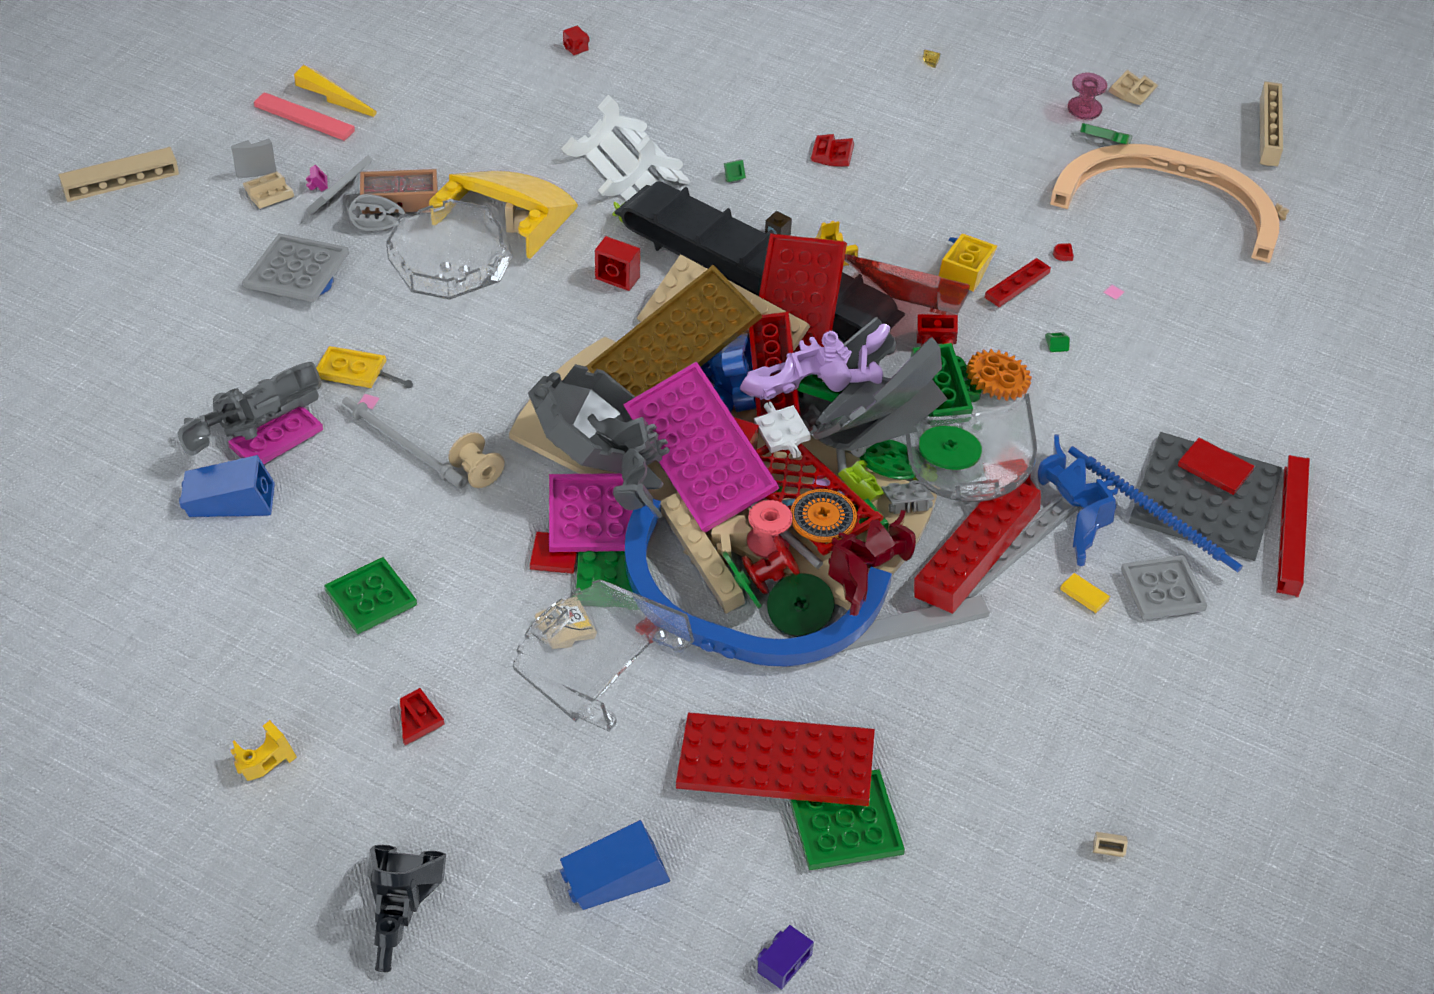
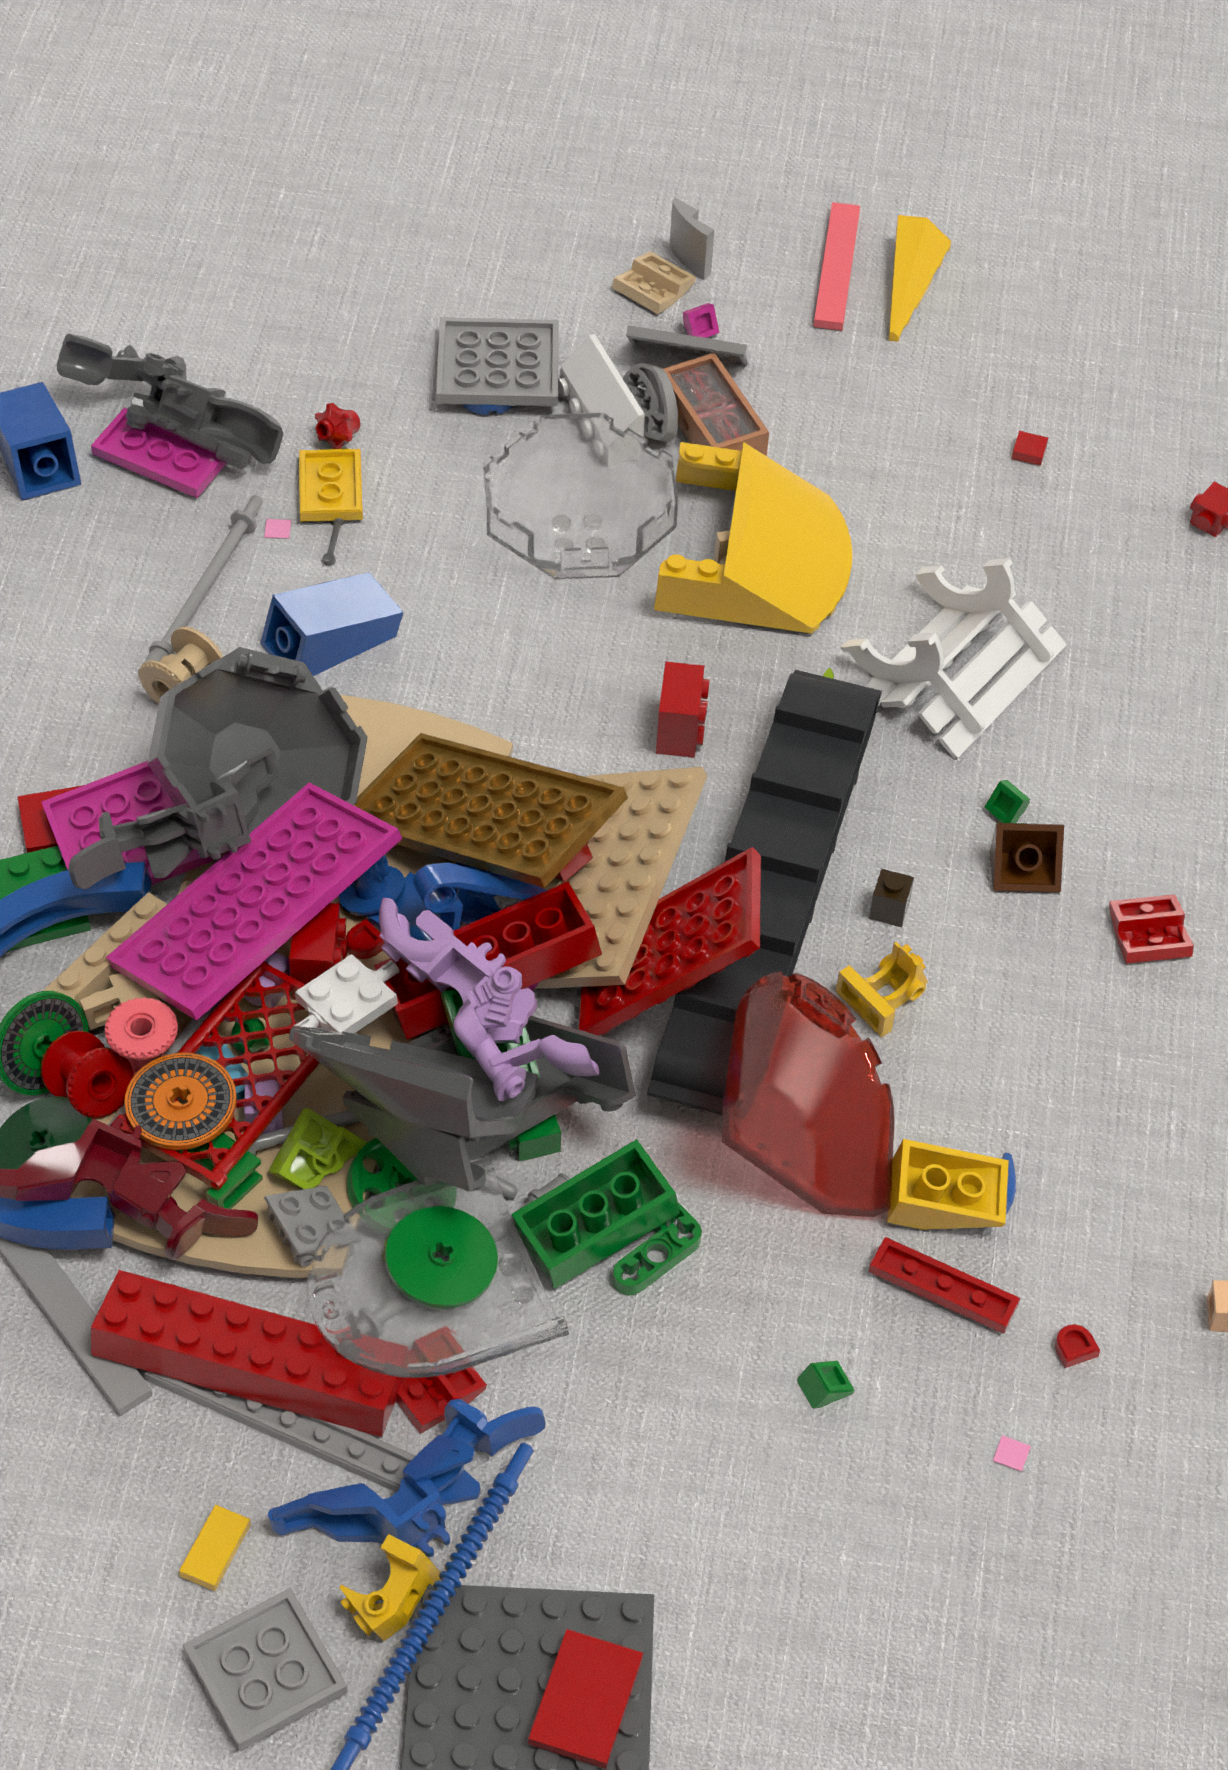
camera: 70 degrees right, 5 degrees up
(118, 174) = (596, 126): tan brick -> none
(308, 348) = (336, 425): none -> red rock
(360, 227) = (596, 386): none -> white slope
(472, 392) = (330, 621): none -> slope
(490, 89) = (1030, 448): none -> red tile
(773, 175) = (1027, 857): none -> reddish brown slope
(937, 326) = (745, 1193): red brick -> none
(998, 374) = (647, 1300): orange gear -> none
(1147, 524) = (401, 1594): none -> yellow tile

